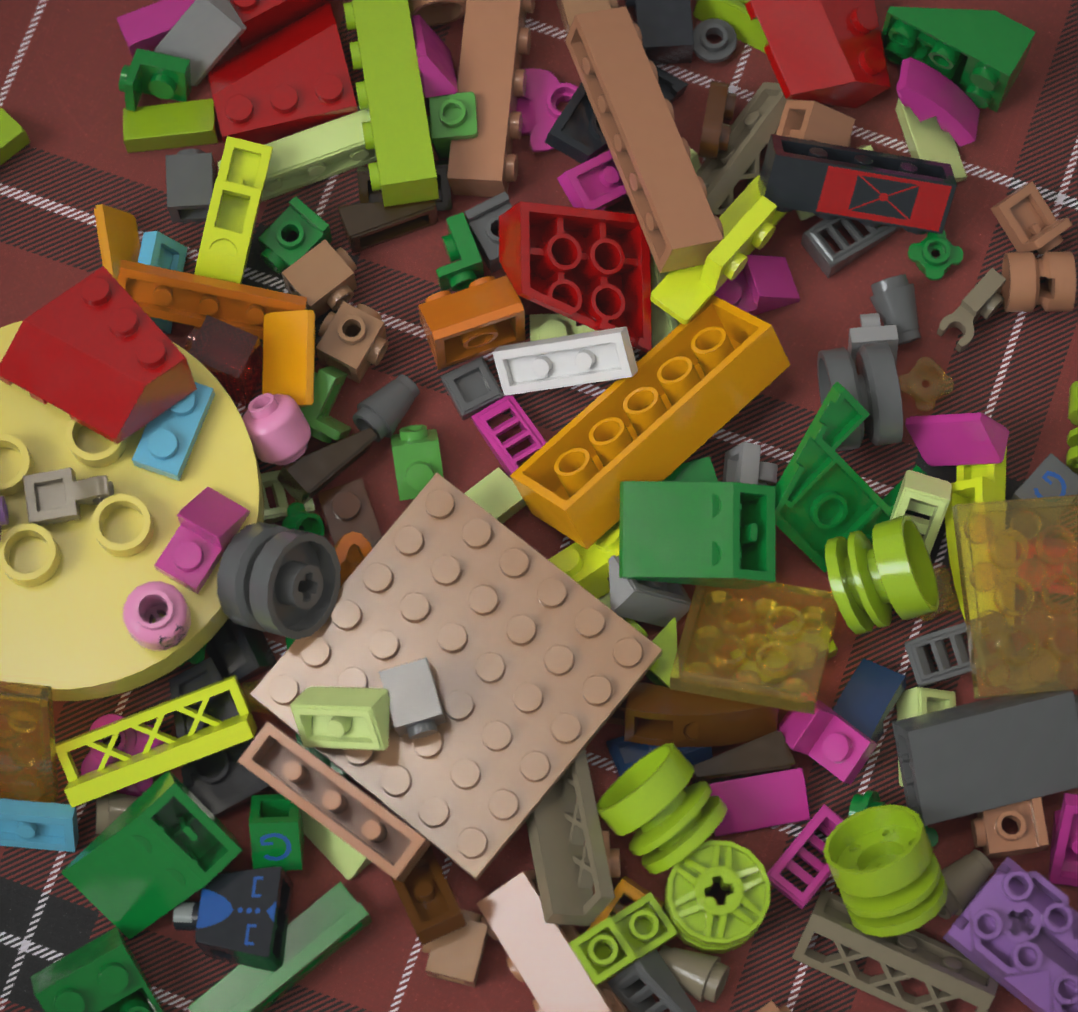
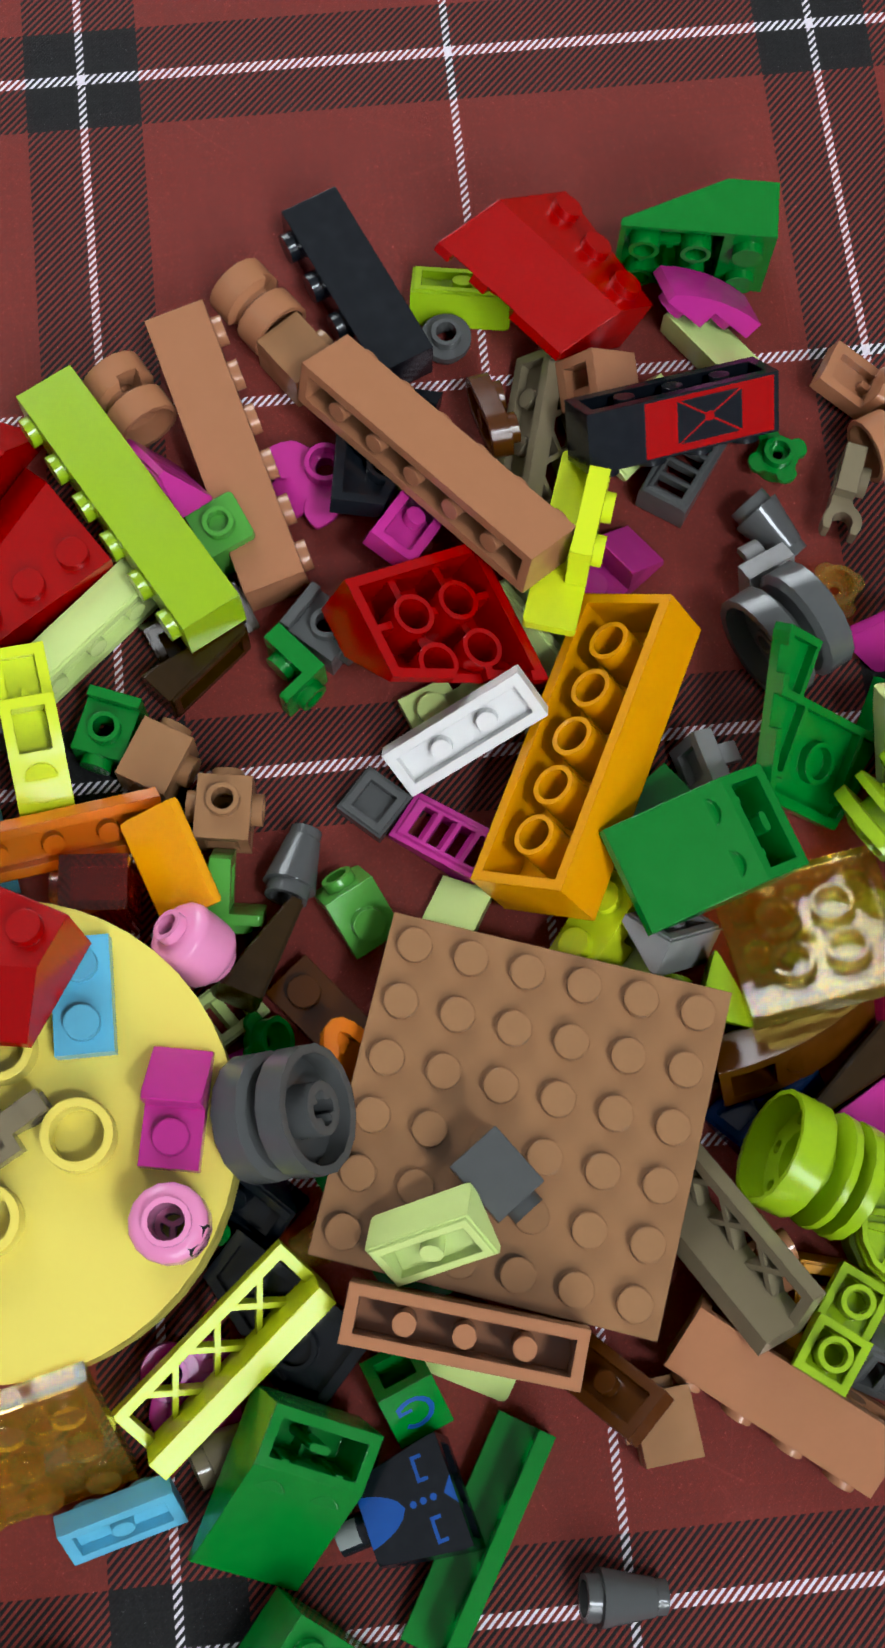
camera: 30 degrees left, 0 degrees up
(472, 320) = (343, 731): orange slope -> none

